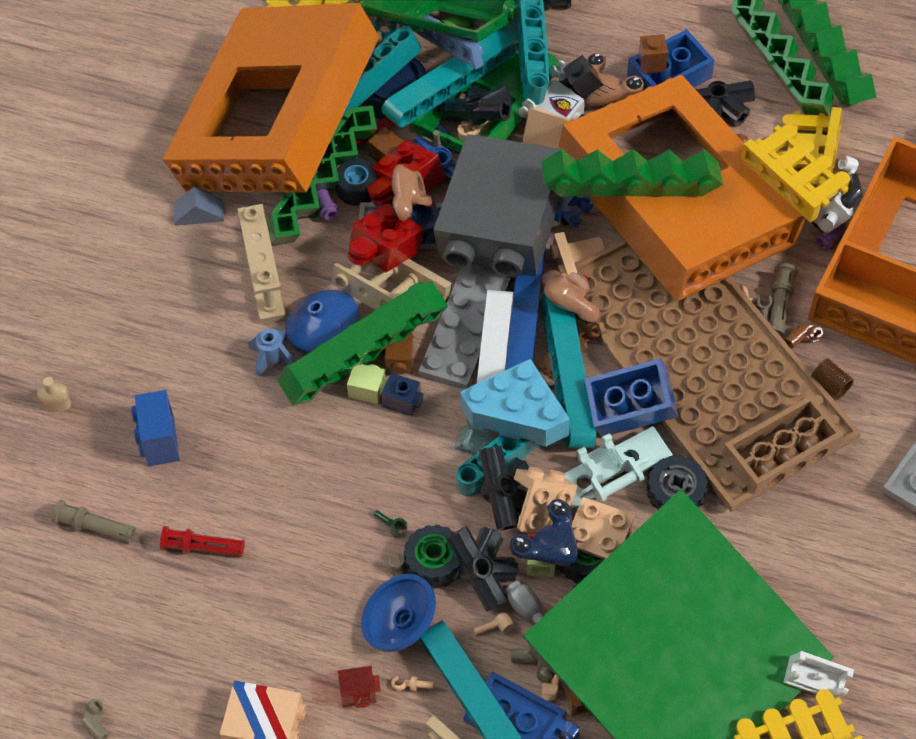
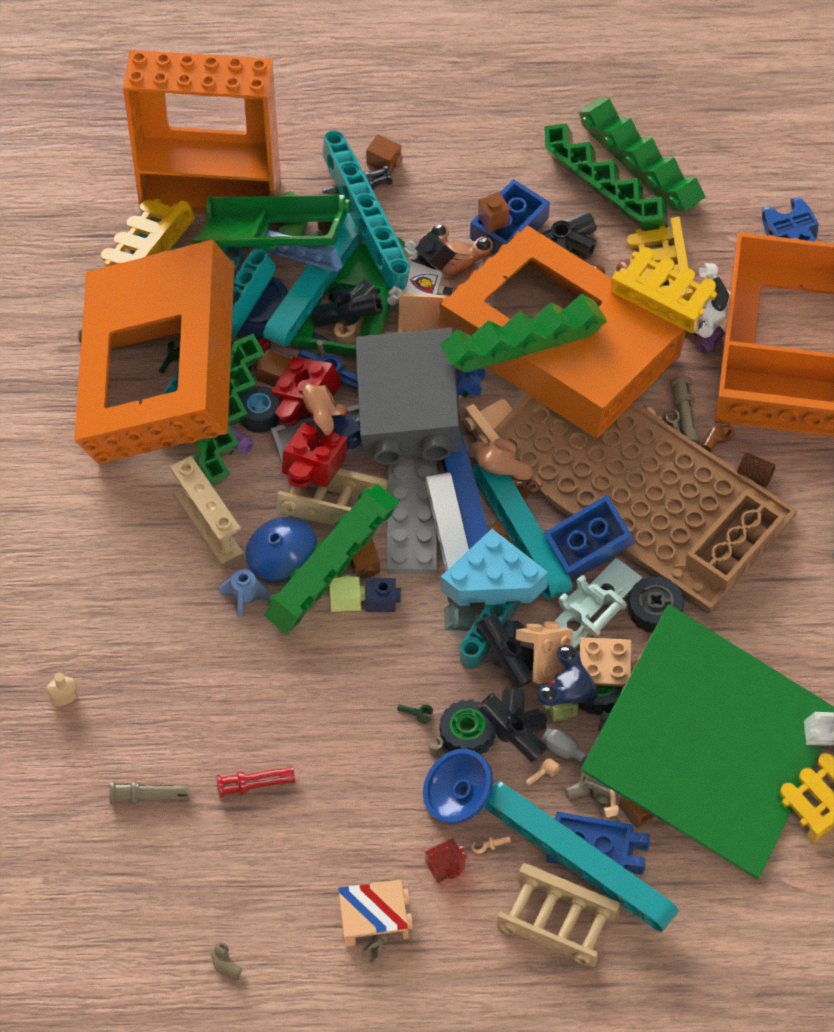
camera: 20 degrees left, 0 degrees up
(155, 428) = (172, 690): blue brick -> none
(197, 208) = (117, 476): sand blue slope -> none

